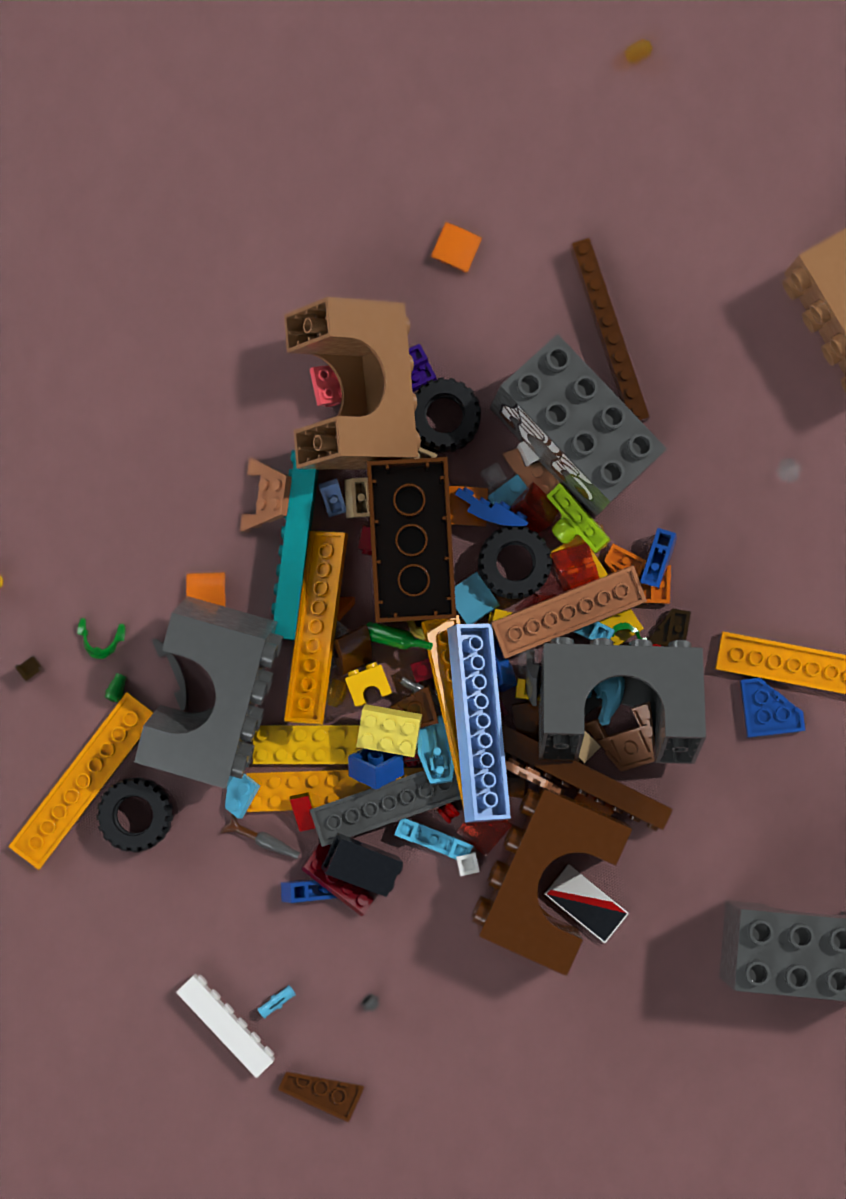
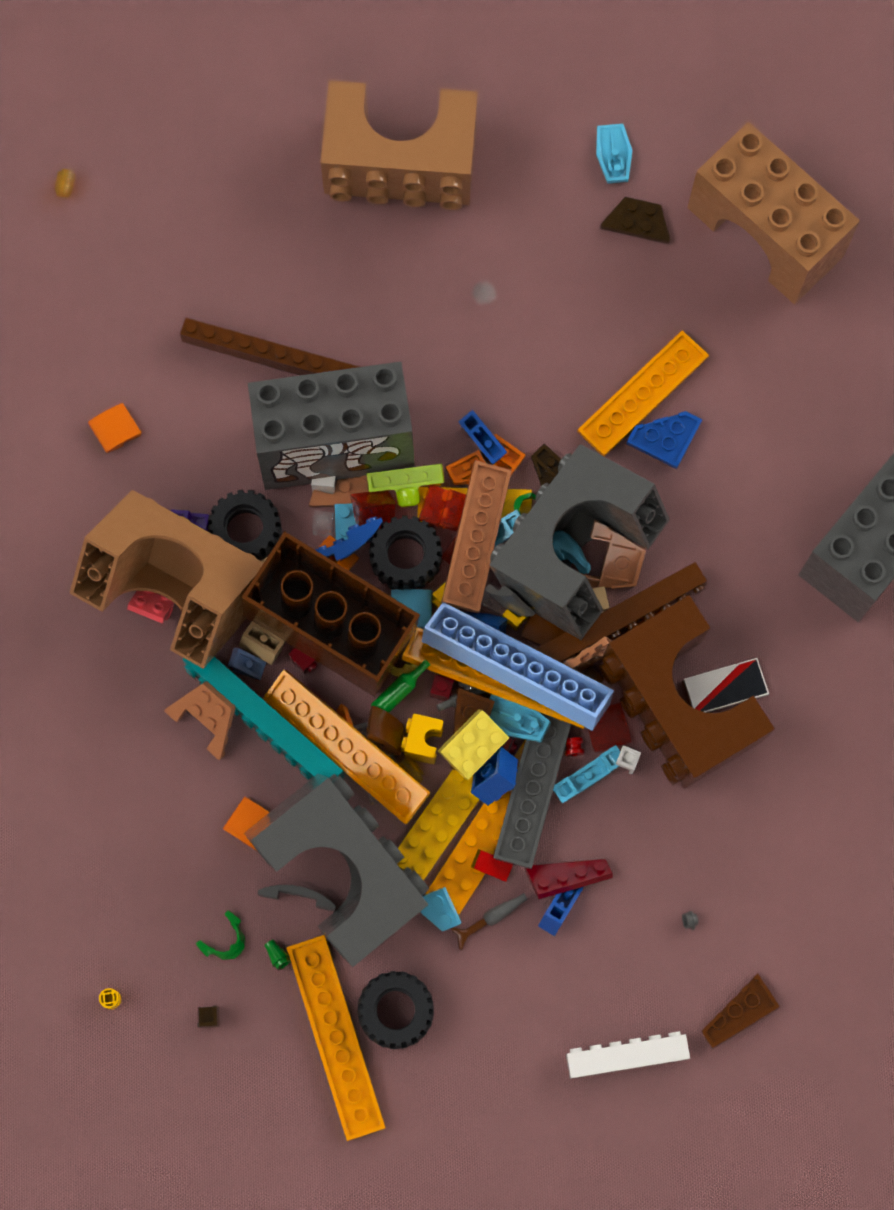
camera: 55 degrees left, 10 degrees down
(276, 1001) = (636, 999): medium azure pin -> none
(362, 865) = (569, 845): black brick -> none

